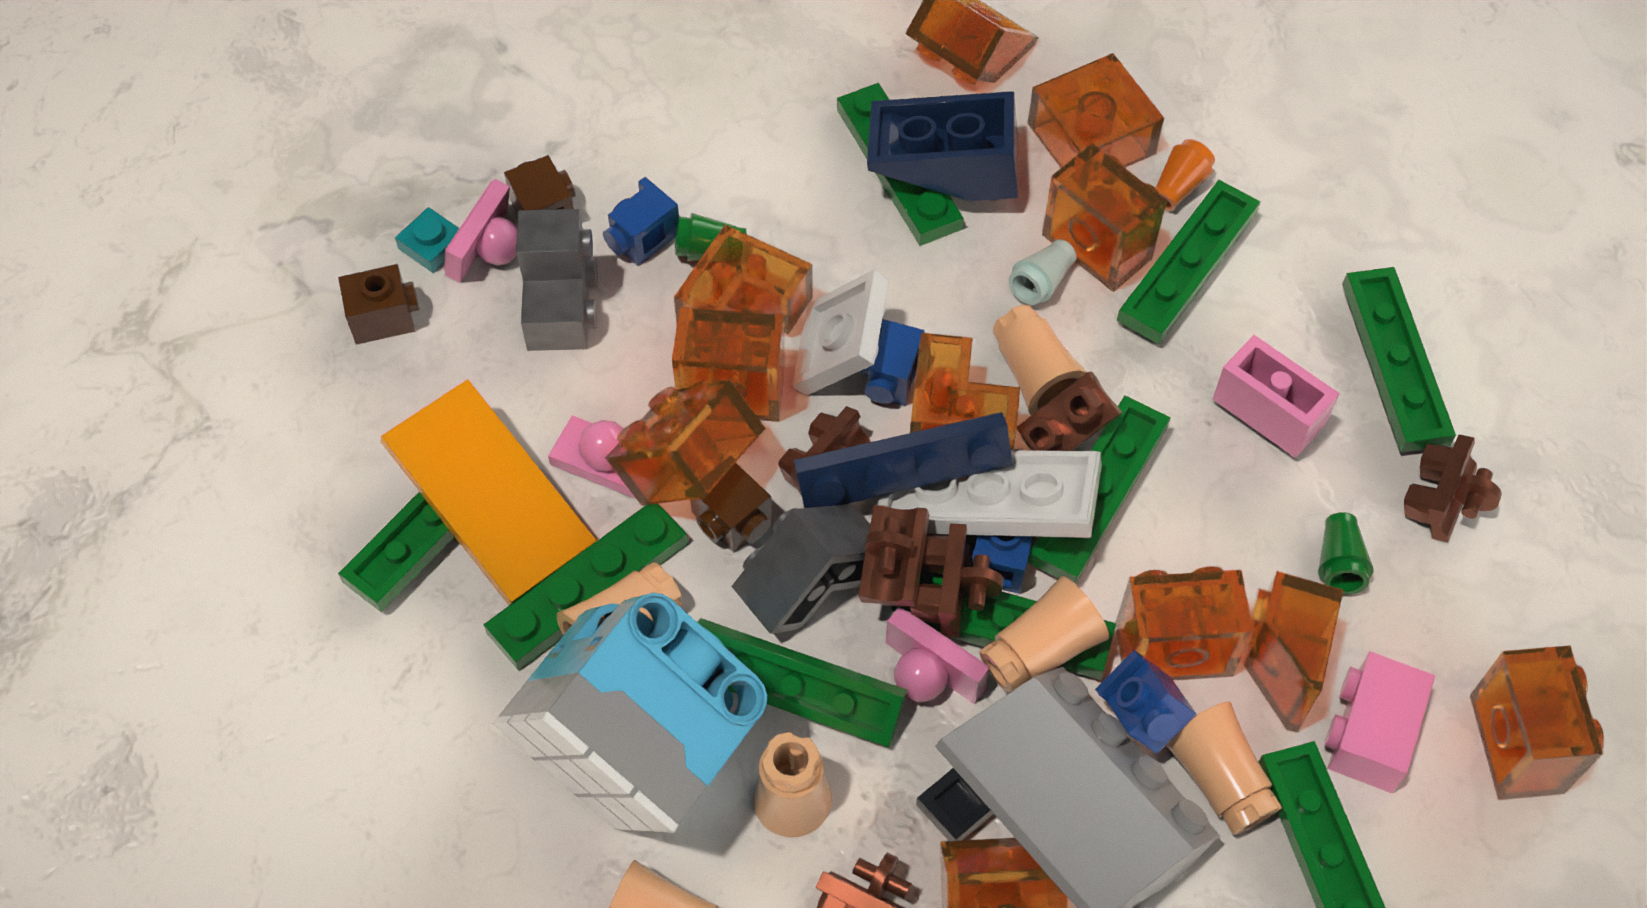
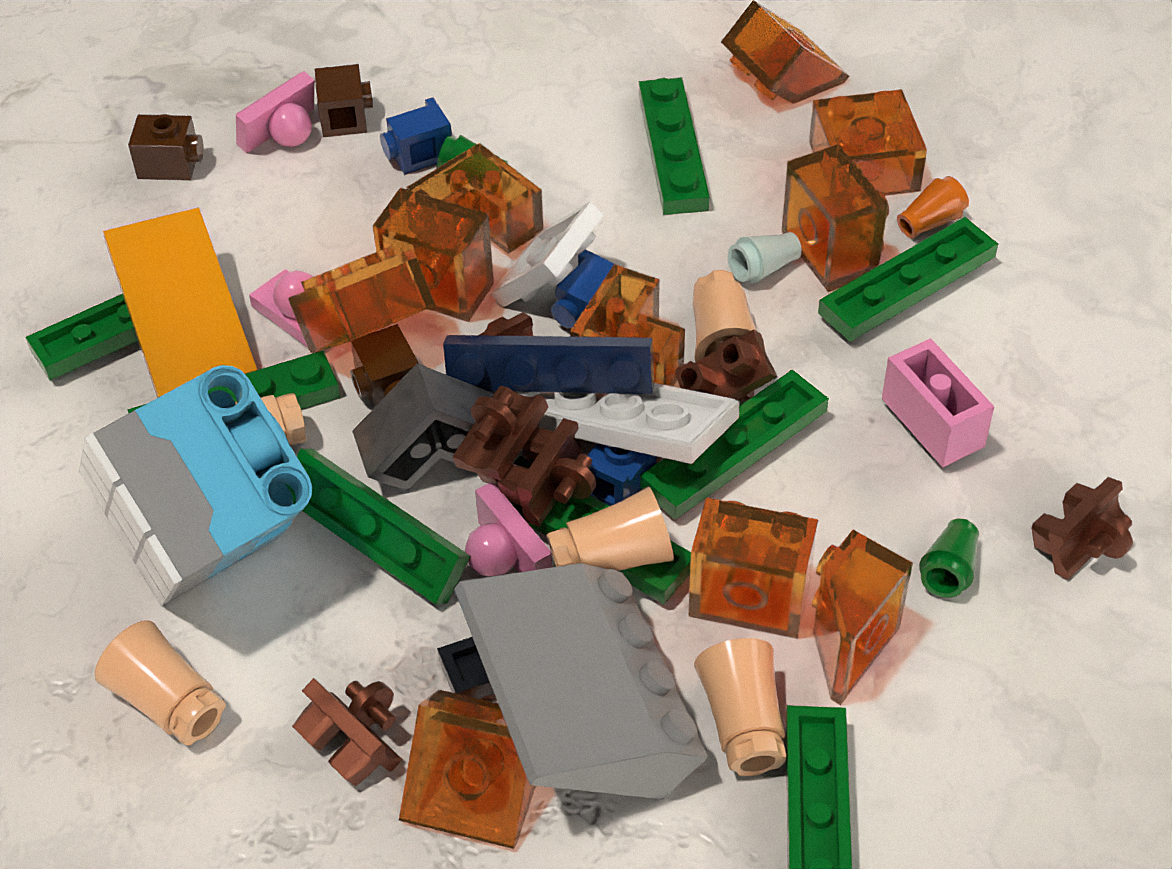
camera: 20 degrees right, 10 degrees down
(427, 239) = (224, 110): teal plate -> none
(556, 278) = (321, 157): flat silver brick -> none
(791, 787) = (325, 603): light nougat plant -> none
(948, 144) = (719, 132): dark blue slope -> none
(1146, 701) = (685, 619): blue brick -> none
(1379, 721) = (921, 710): bright pink brick -> none
(1398, 359) = (1081, 405): green plate -> none
(1536, 722) = (1079, 748): clear orange brick -> none

